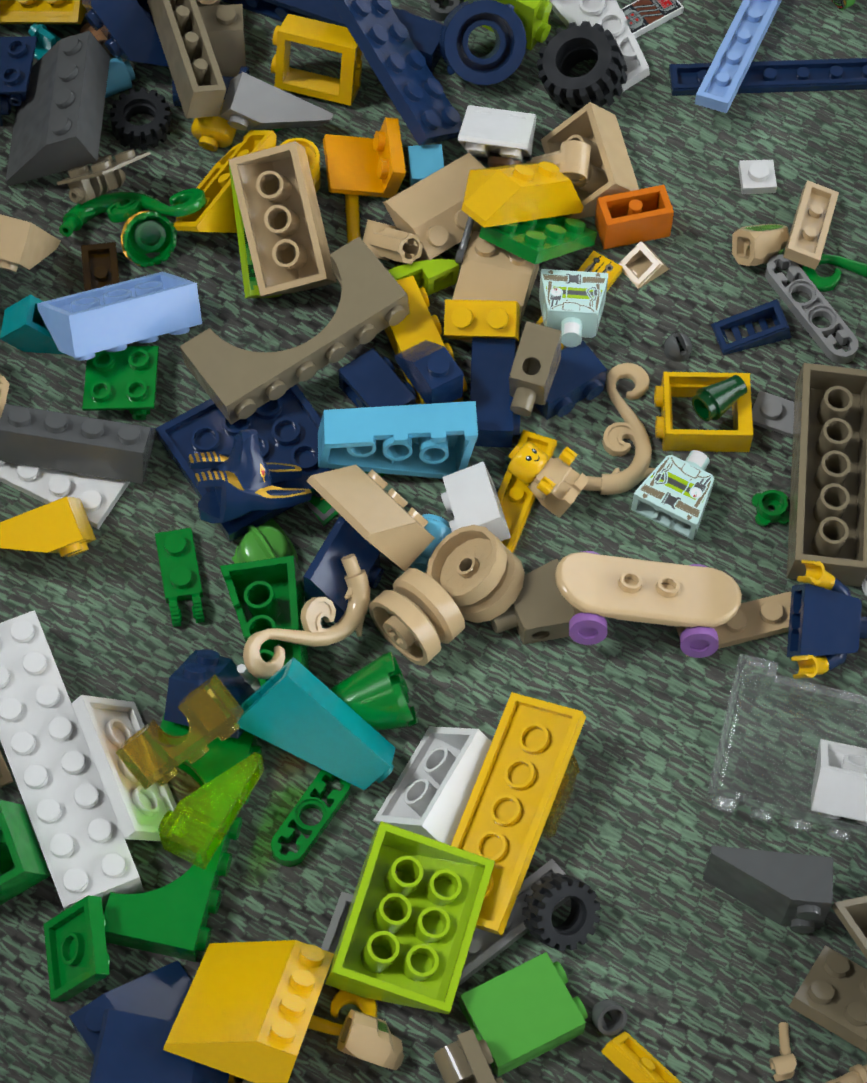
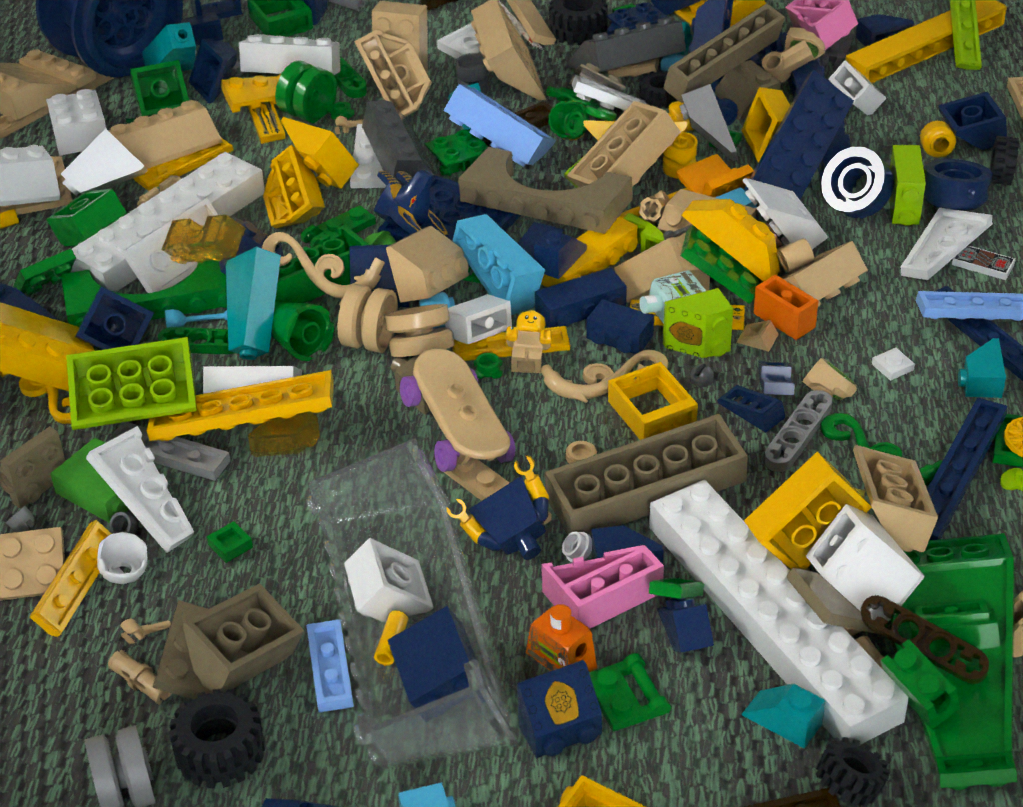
camera: 65 degrees right, 20 degrees down
(90, 599) = (291, 190): none -> yellow wedge
(142, 179) = (607, 96): none -> white plate
(207, 814) = (162, 279): clear neon green slope -> none
(255, 902) = (113, 321): none -> dark blue slope
(257, 824) = (176, 318): none -> medium azure hinge
(370, 1040) = (44, 410): tan rock -> none
(481, 319) = (628, 265): yellow brick -> none
(534, 367) = (596, 287): dark tan torso -> none
(549, 527) = (488, 366): none -> green plate
(569, 49) = (888, 236): black tyre -> none
(578, 922) = (202, 464): black tyre -> none
(584, 973) = (135, 479): none -> white wing
(629, 303) = (698, 324): none -> lime slope
(669, 1022) = (118, 551): none -> white hair
(676, 493) = (571, 412): light aqua torso -> none
(696, 914) = (229, 542): none -> green plate
(717, 398) = (655, 388): dark green cone -> none
(723, 287) = (776, 378): none -> slope
(736, 515) = (579, 450): none -> tan tile
(779, 885) = (268, 559): dark grey slope -> none
(811, 225) = (870, 398): tan plate -> none
(822, 110) = (984, 372): none -> teal slope

